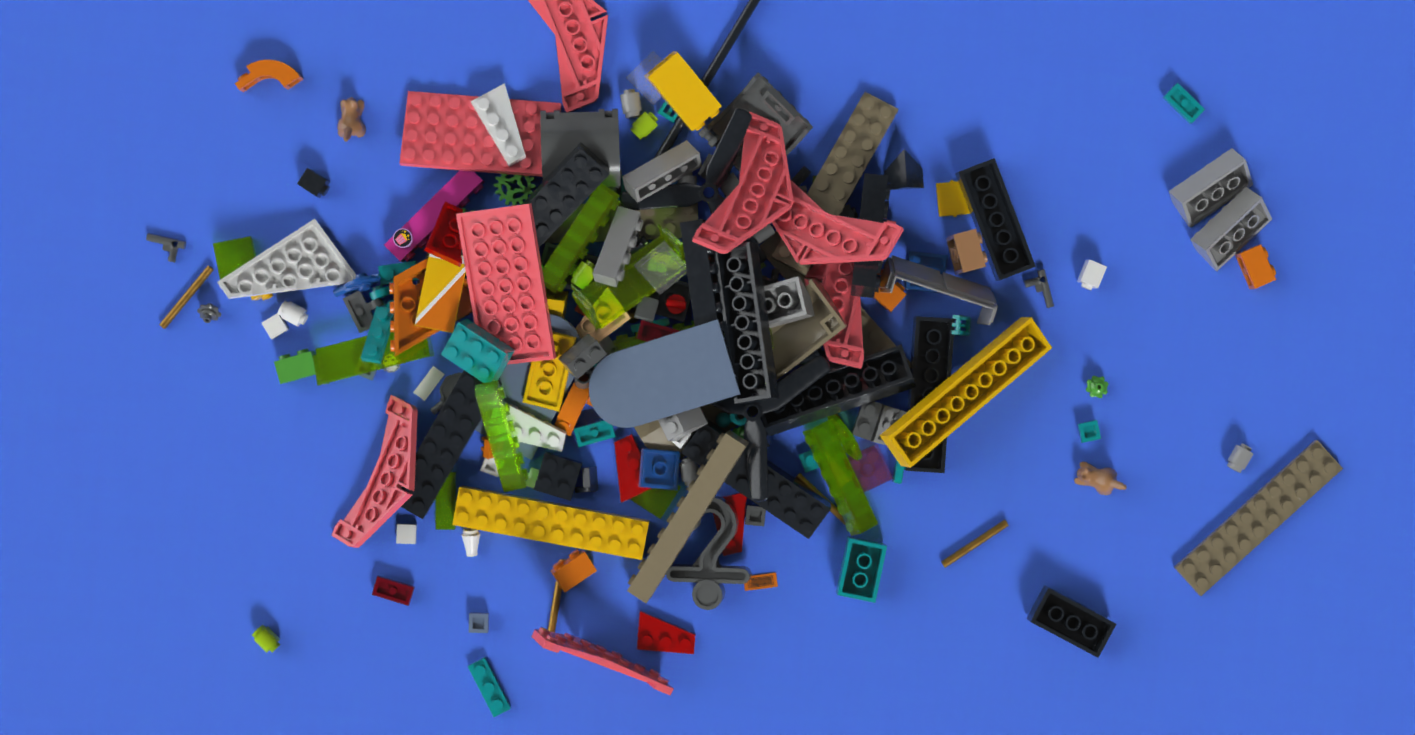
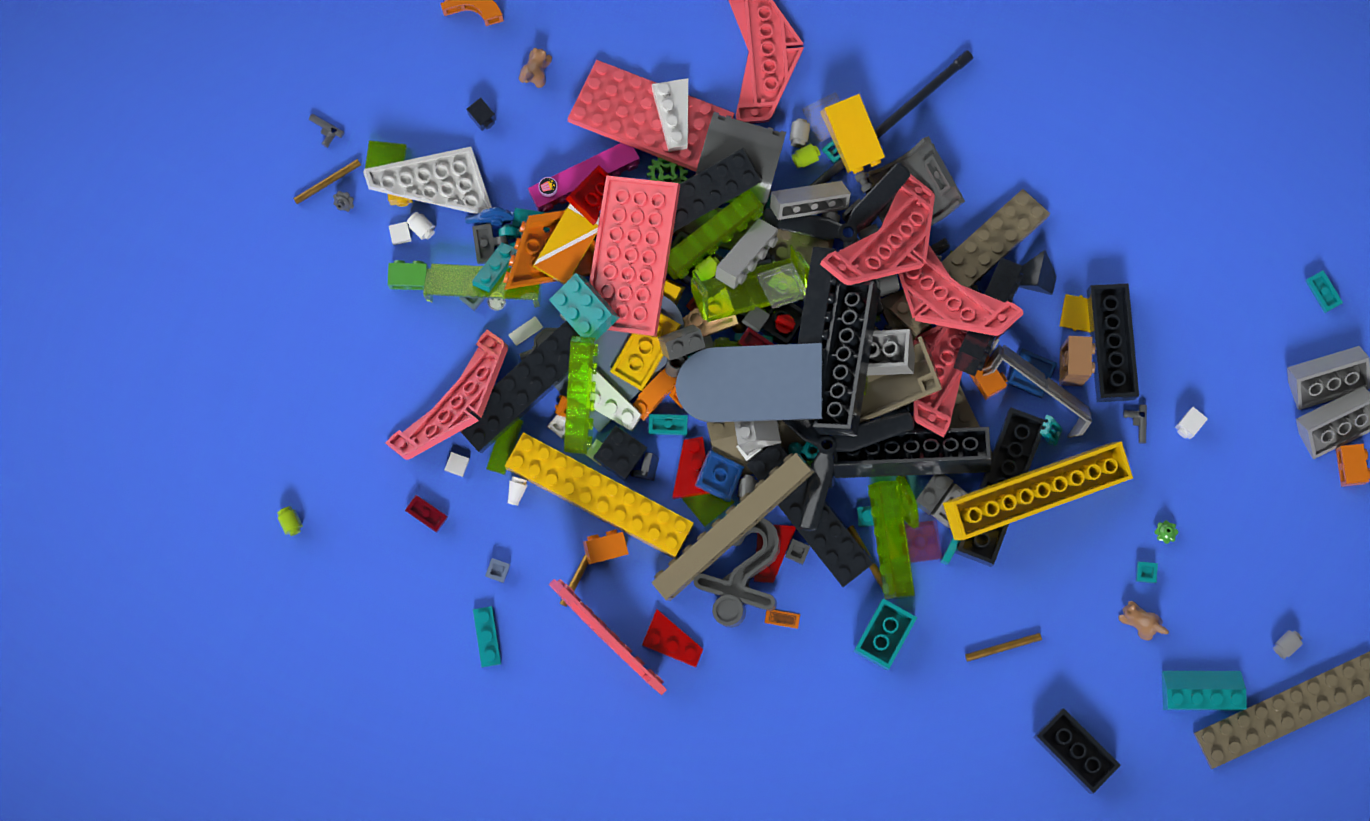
camera: 20 degrees right, 10 degrees down
(1173, 526) = (1203, 690): none -> teal slope

